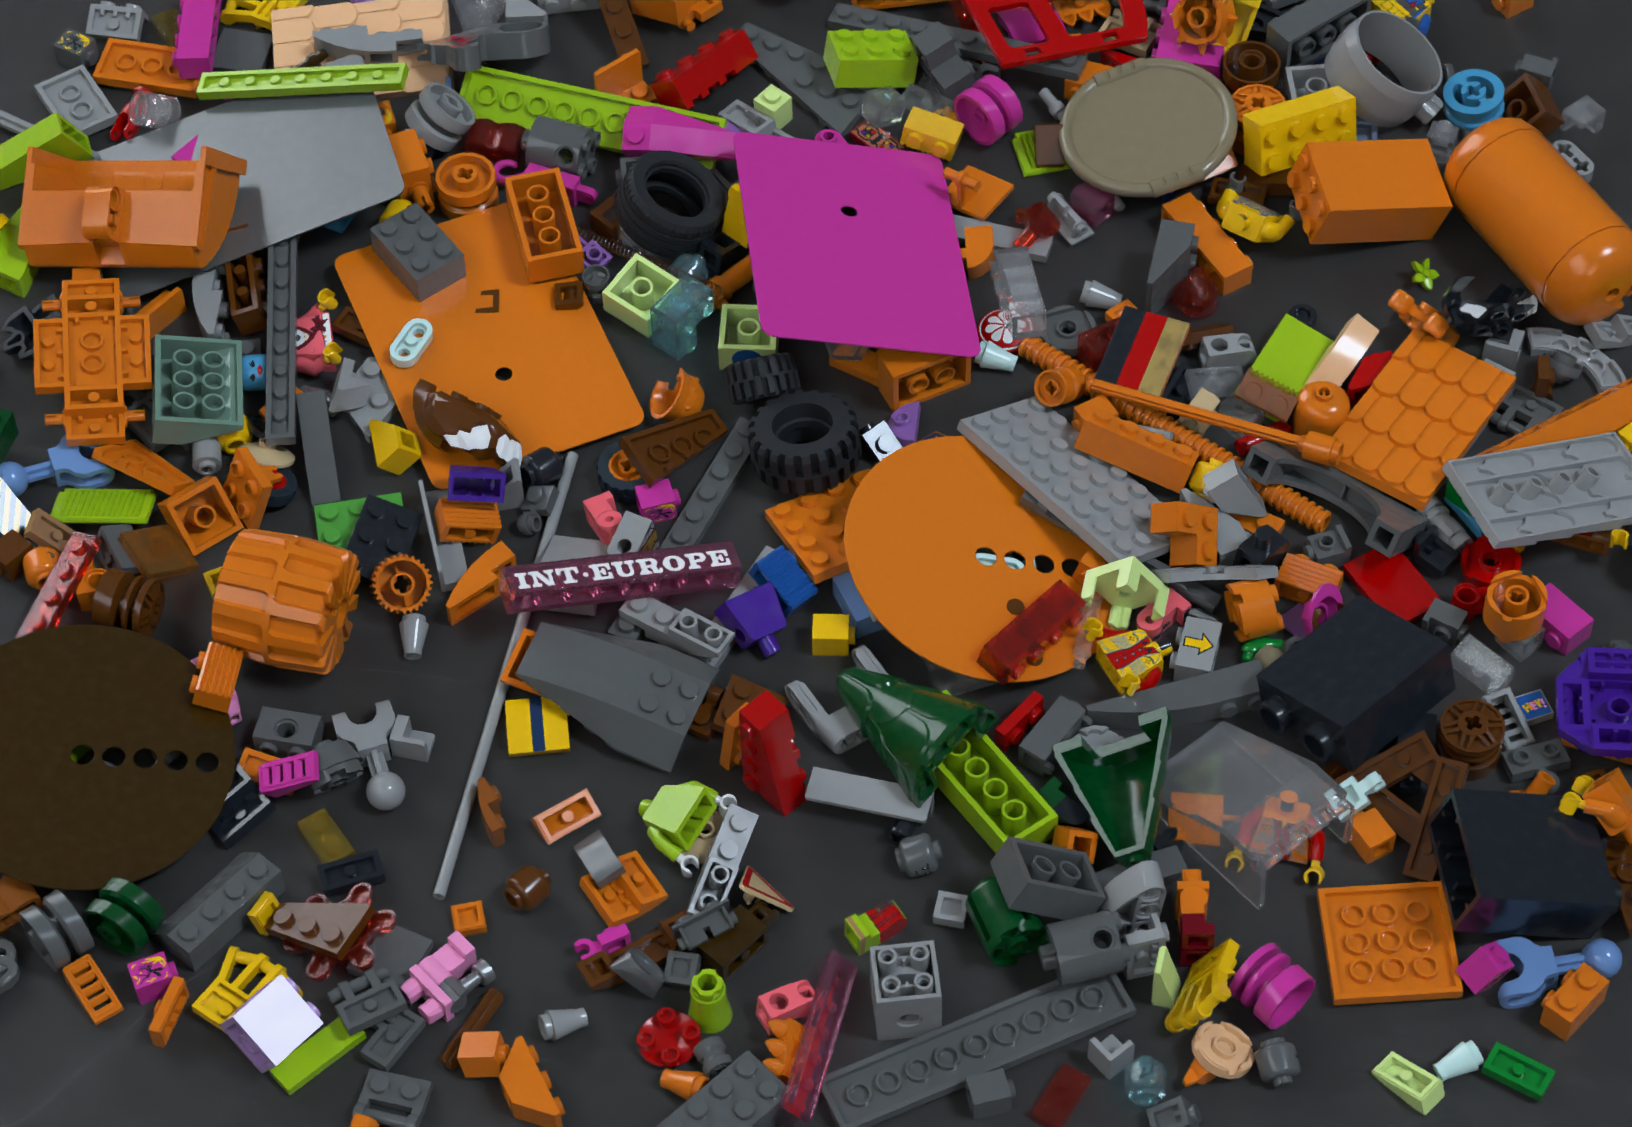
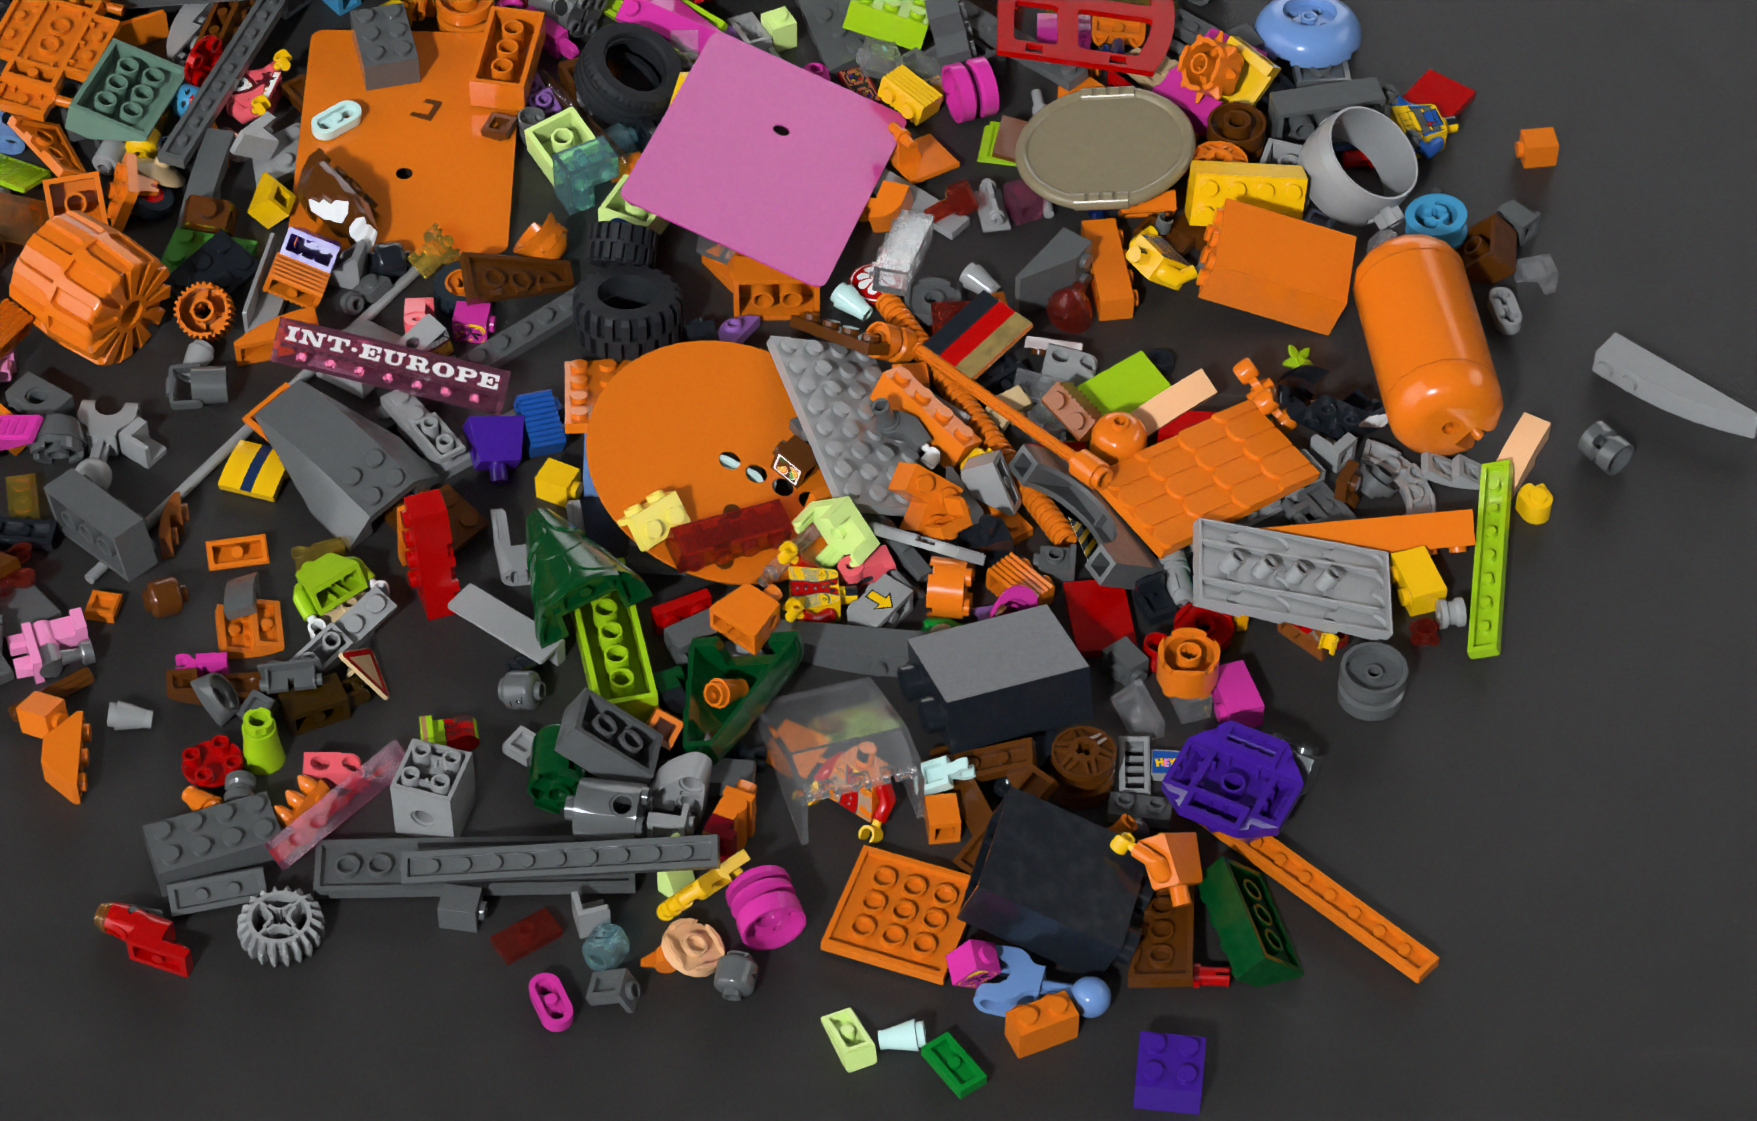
camera: 20 degrees right, 5 degrees down
(252, 325) = (202, 59): none -> red dish
(344, 484) = (209, 215): none -> reddish brown torso
(431, 838) = (101, 524): none -> dark grey brick
(441, 656) = (208, 385): none -> dark grey piece
(583, 445) = (434, 252): none -> clear yellow piece
(645, 787) = (317, 550): none -> clear yellow bar
(707, 154) = (686, 46): none -> clear plate
(959, 641) = (653, 519): none -> light yellow bracket
(1019, 394) = (845, 336): none -> reddish brown plate
(1045, 535) = (794, 461): none -> reddish brown brick
(1069, 1014) = (560, 860): none -> dark grey plate
(1092, 25) = (1117, 46): none -> clear blue arm
(1094, 705) = (747, 615): none -> orange torso
(1111, 788) = (723, 691): none -> orange cone
(1131, 466) = (905, 428): none -> dark grey arm
(1227, 543) = (956, 520): none -> orange bracket
(1345, 519) = (1085, 538): none -> sticker

